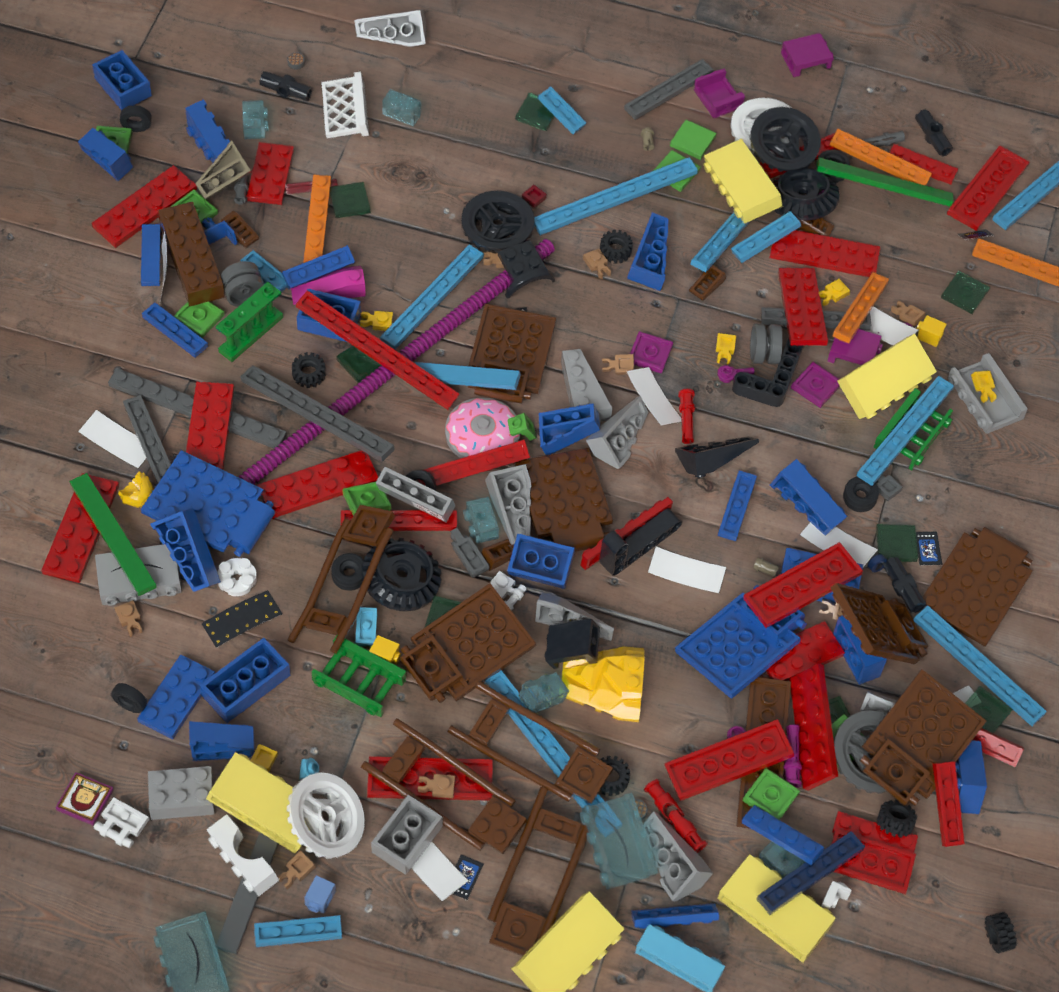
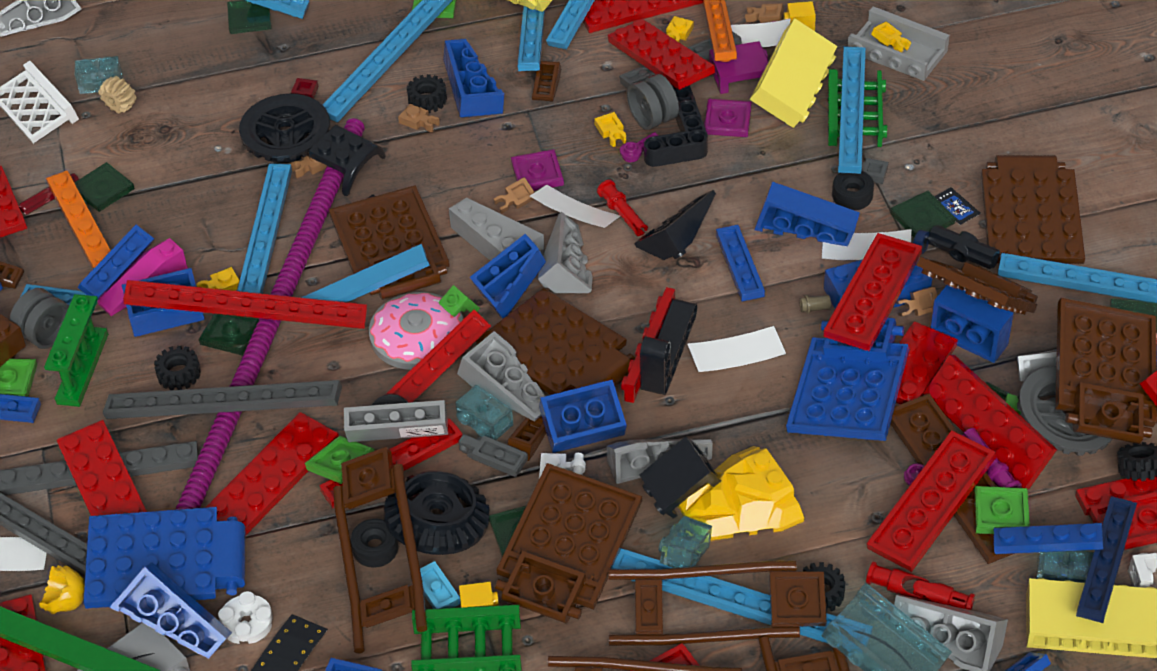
camera: 25 degrees left, 10 degrees down
(402, 131) = (117, 94): none -> tan gear

